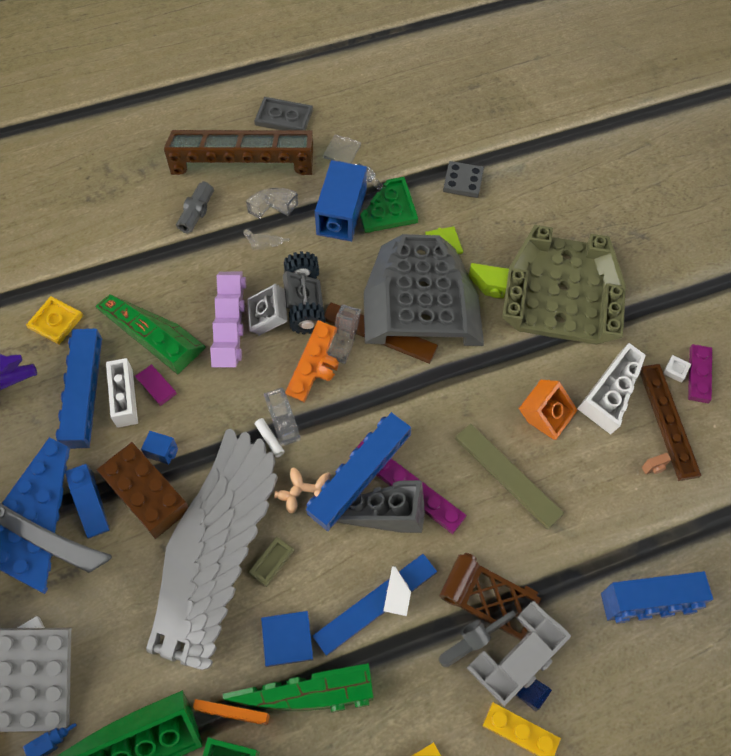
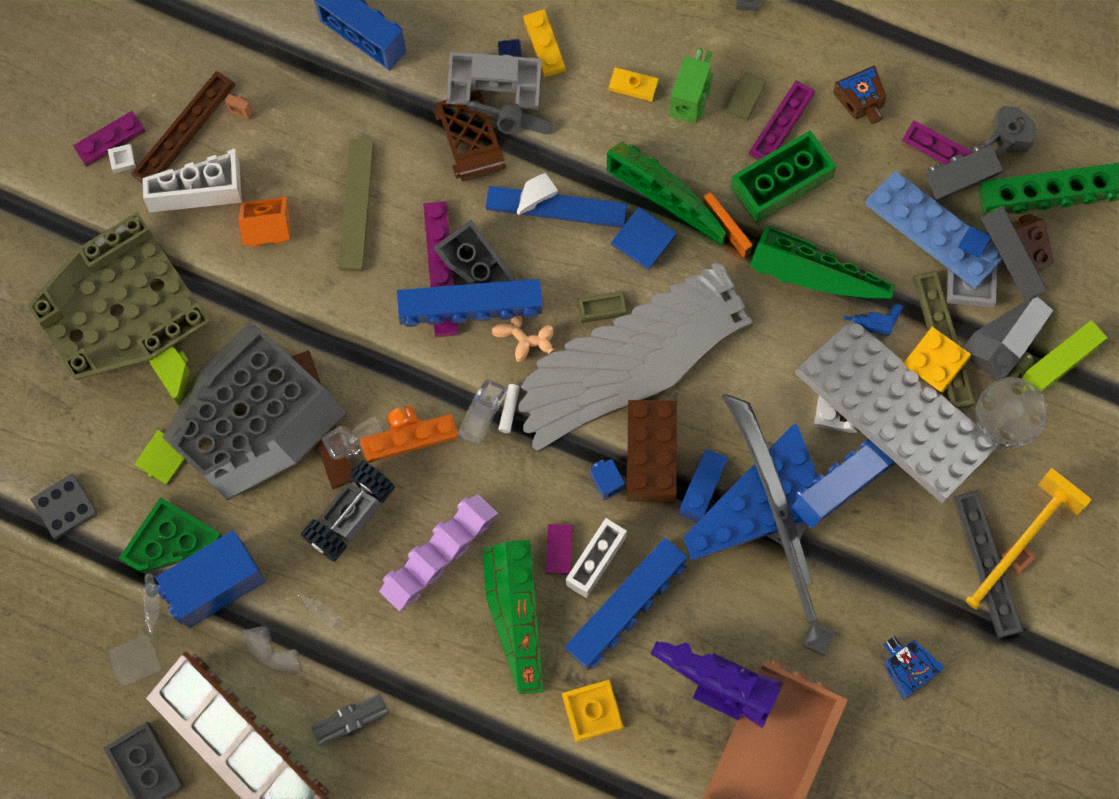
camera: 130 degrees left, 10 degrees up
(267, 309) = (411, 519): light grey brick -> none

